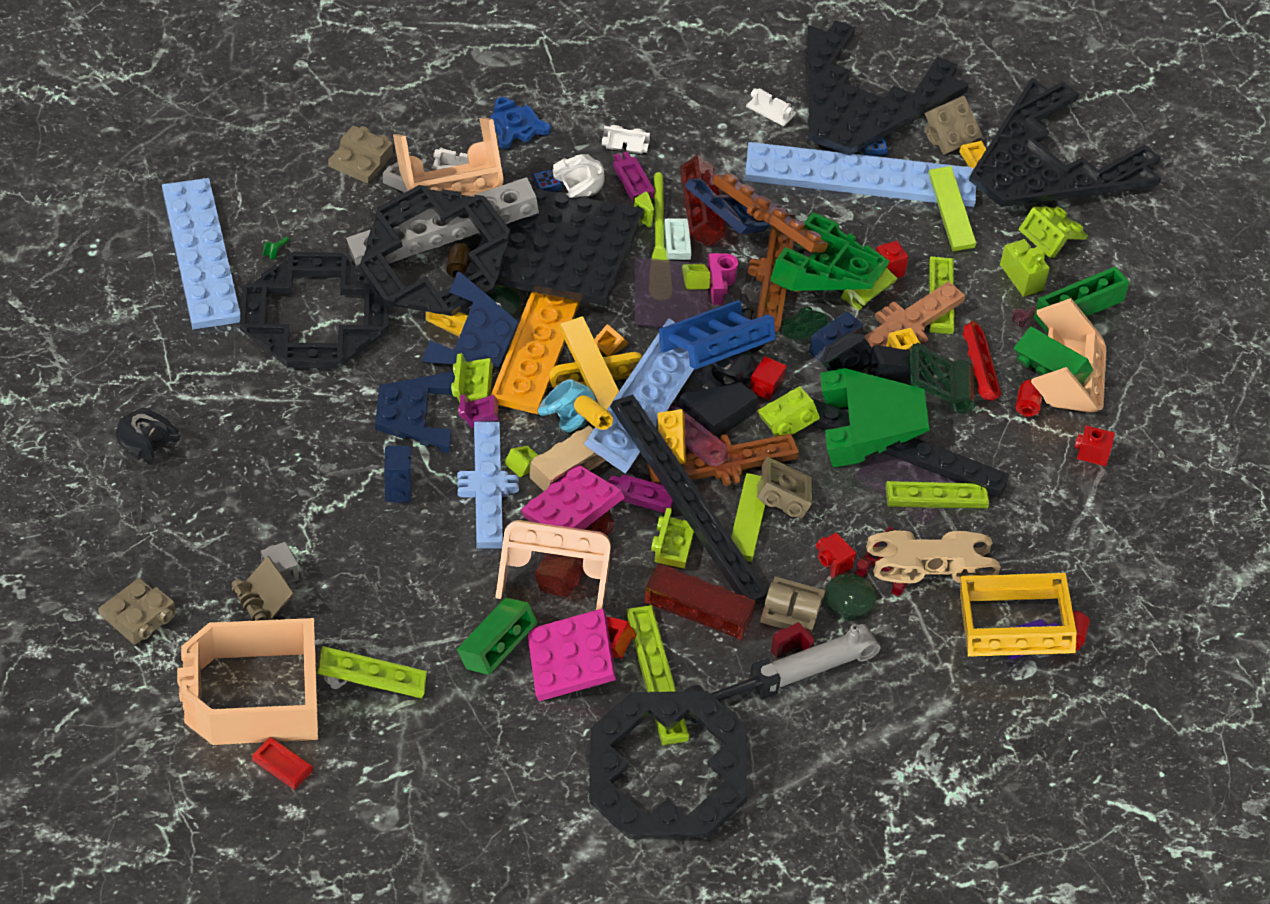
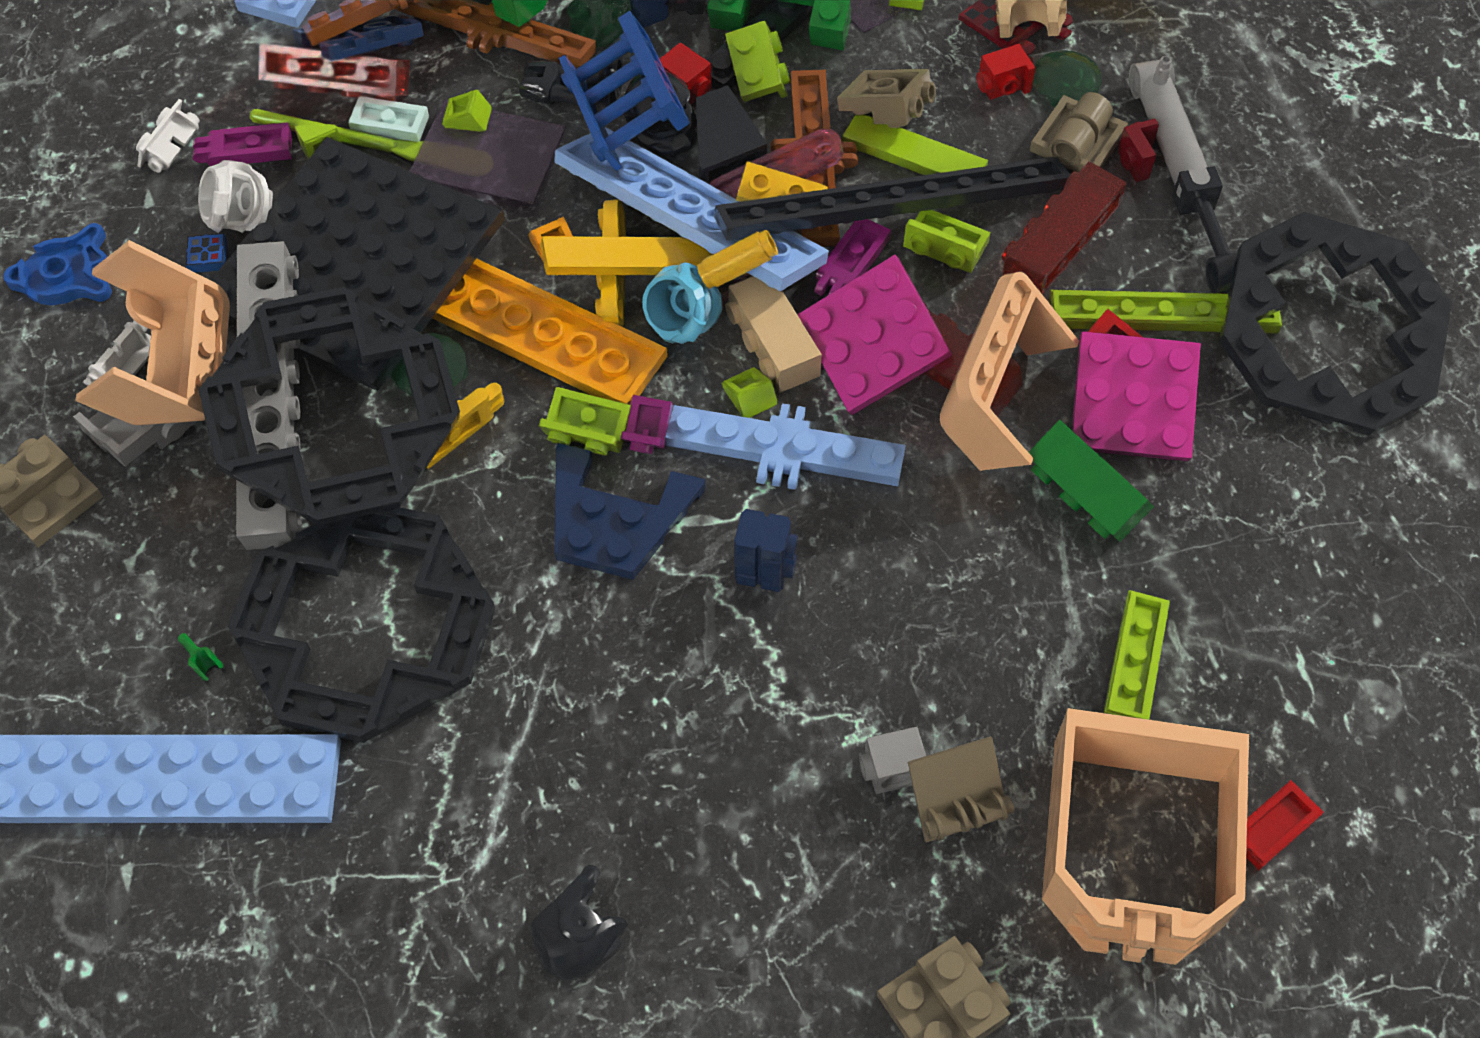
camera: 70 degrees left, 10 degrees up
(458, 259) = (334, 393): dark brown brick -> none
(484, 332) = (508, 383): dark blue wing -> none
(723, 274) = (469, 74): dark pink plate -> none

